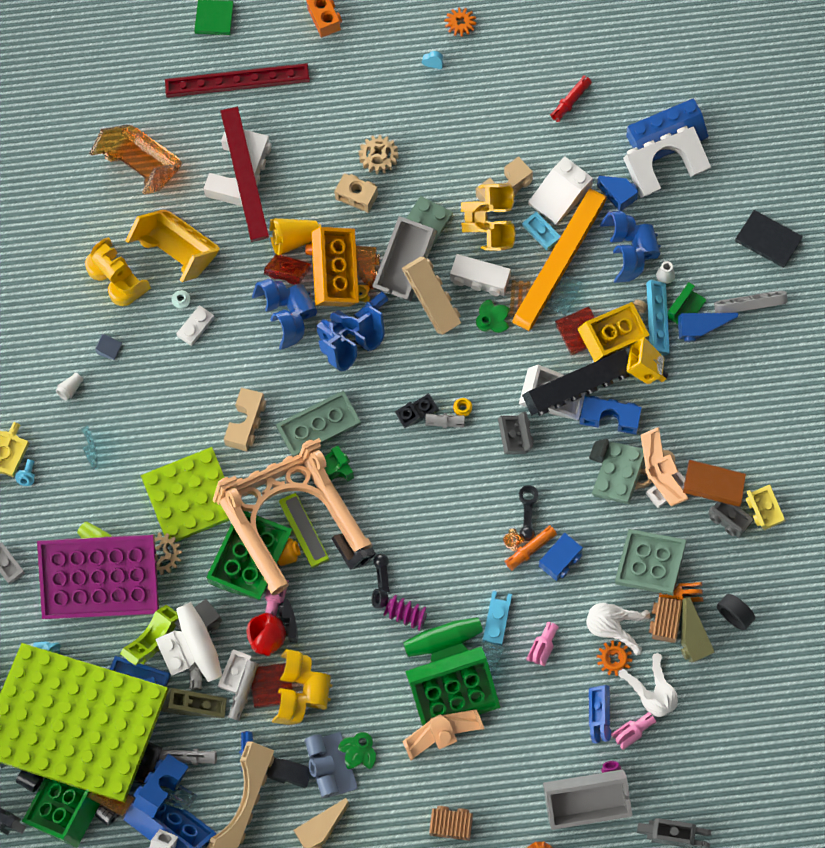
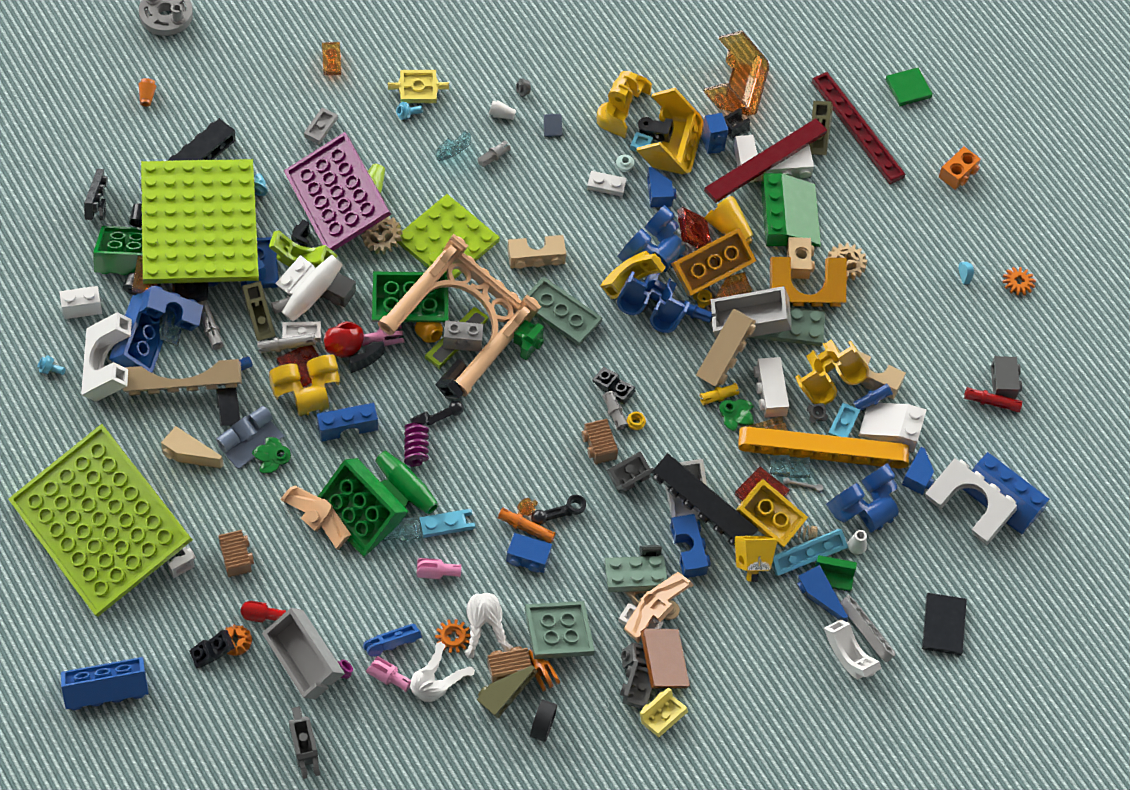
camera: 55 degrees right, 10 degrees down
(52, 355) = (523, 87): none -> dark grey plate
(115, 413) = (493, 154): none -> light grey axle
(122, 631) = (300, 234): none -> black bracket
(159, 256) = (657, 129): none -> black leg
(167, 275) = (640, 140): none -> medium azure plate
(186, 184) = (736, 124): none -> black window
(192, 205) = (714, 133): none -> blue brick
(213, 103) = (823, 113): none -> olive slope
(226, 281) = (660, 189): none -> blue slope
(301, 179) = (789, 209): none -> slope
(307, 344) = (642, 264): none -> yellow arch
(311, 522) = (463, 336): none -> light grey brick
(354, 666) = (334, 422): none -> blue arch
(406, 181) = (832, 291): none -> light orange arch
(466, 323) = (719, 394): none -> yellow pin
(472, 447) = (600, 441): none -> medium nougat brick
(521, 244) = (812, 409): none -> dark grey plate
(523, 823) = (259, 612): none -> red arm
(529, 195) = (873, 397): none -> blue pin
(554, 78) = (1005, 376): none -> dark grey brick
(595, 281) = (818, 488): none -> light grey hinge
(699, 509) = (633, 652): none -> dark grey bracket
(770, 327) = (849, 652): none -> white arch

